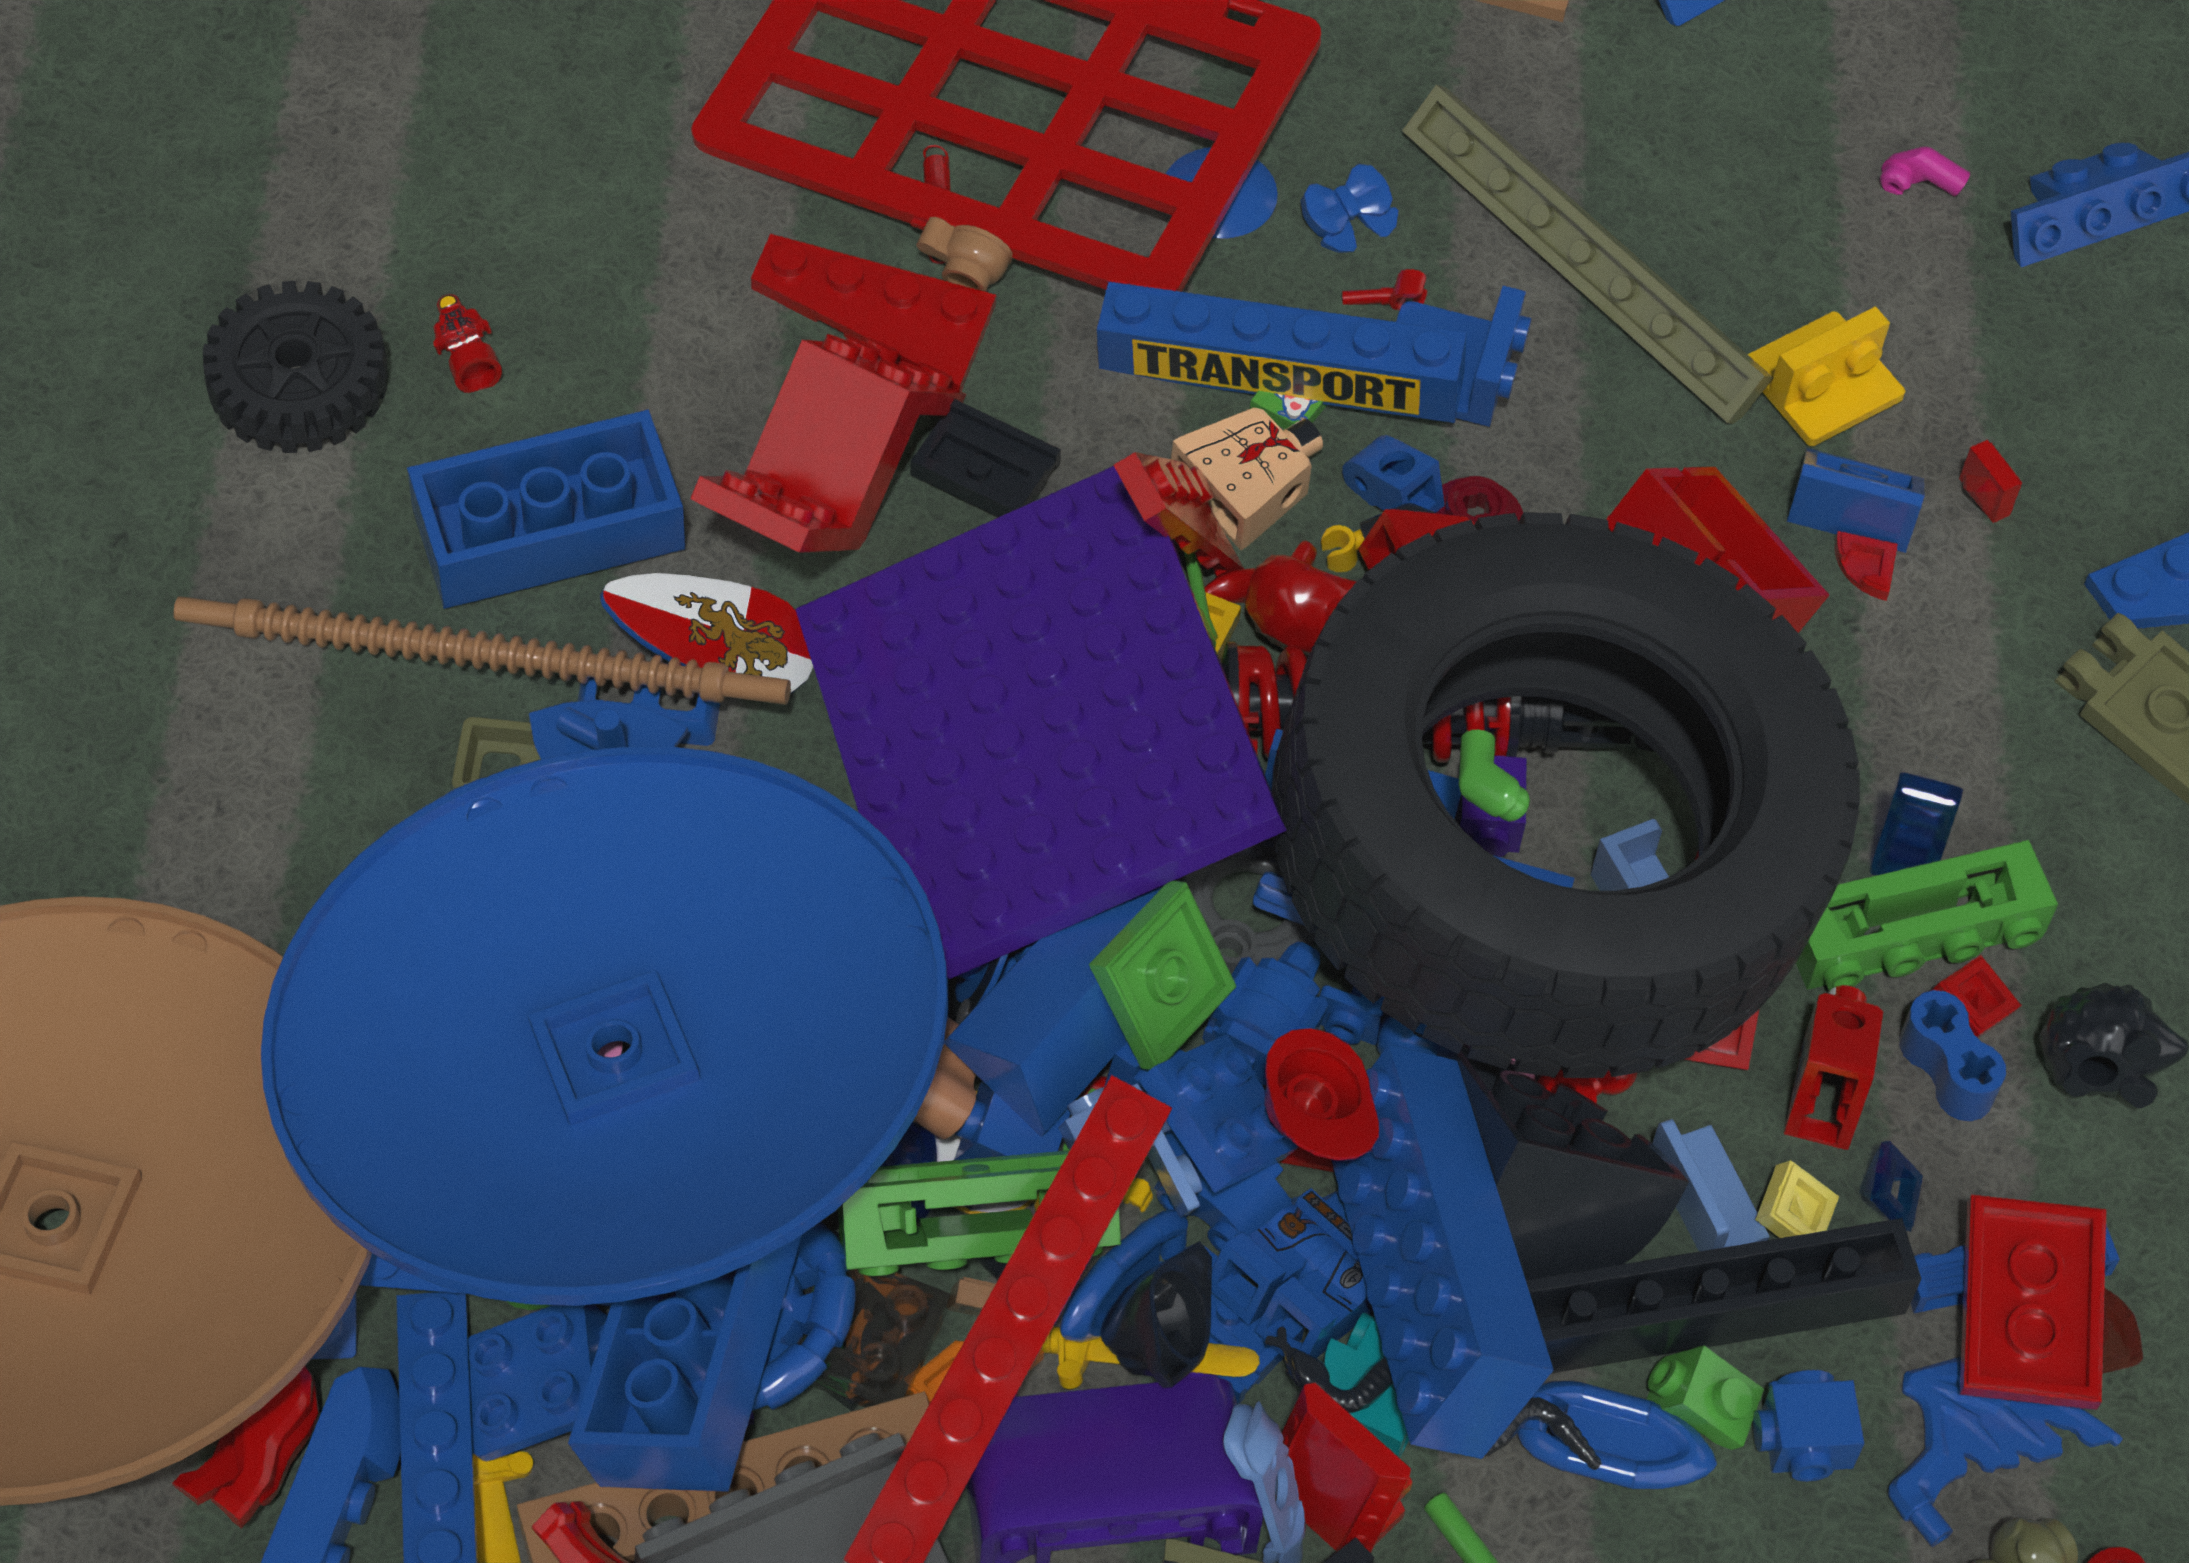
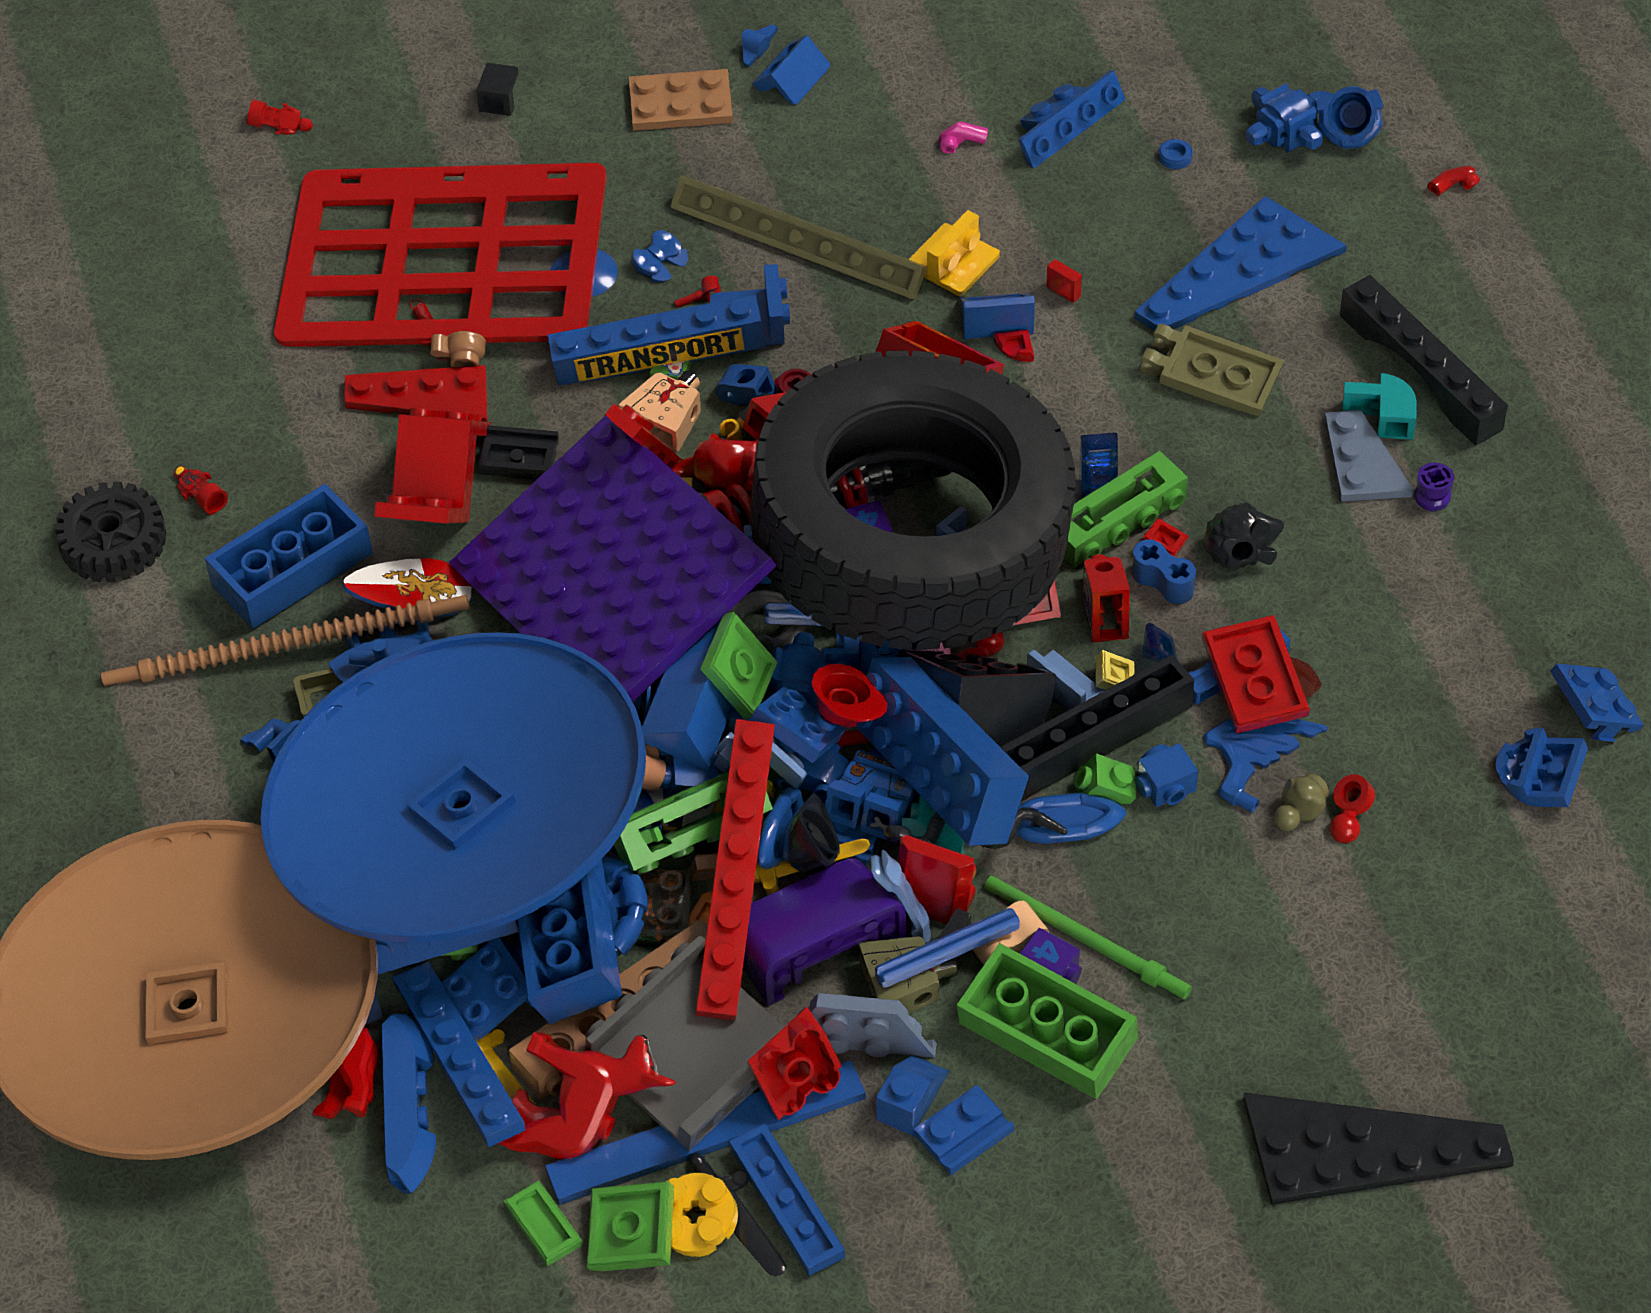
camera: 15 degrees left, 5 degrees down
(389, 801) = (271, 735): none -> blue piece
(1485, 782) = (876, 497): bright green arm -> none

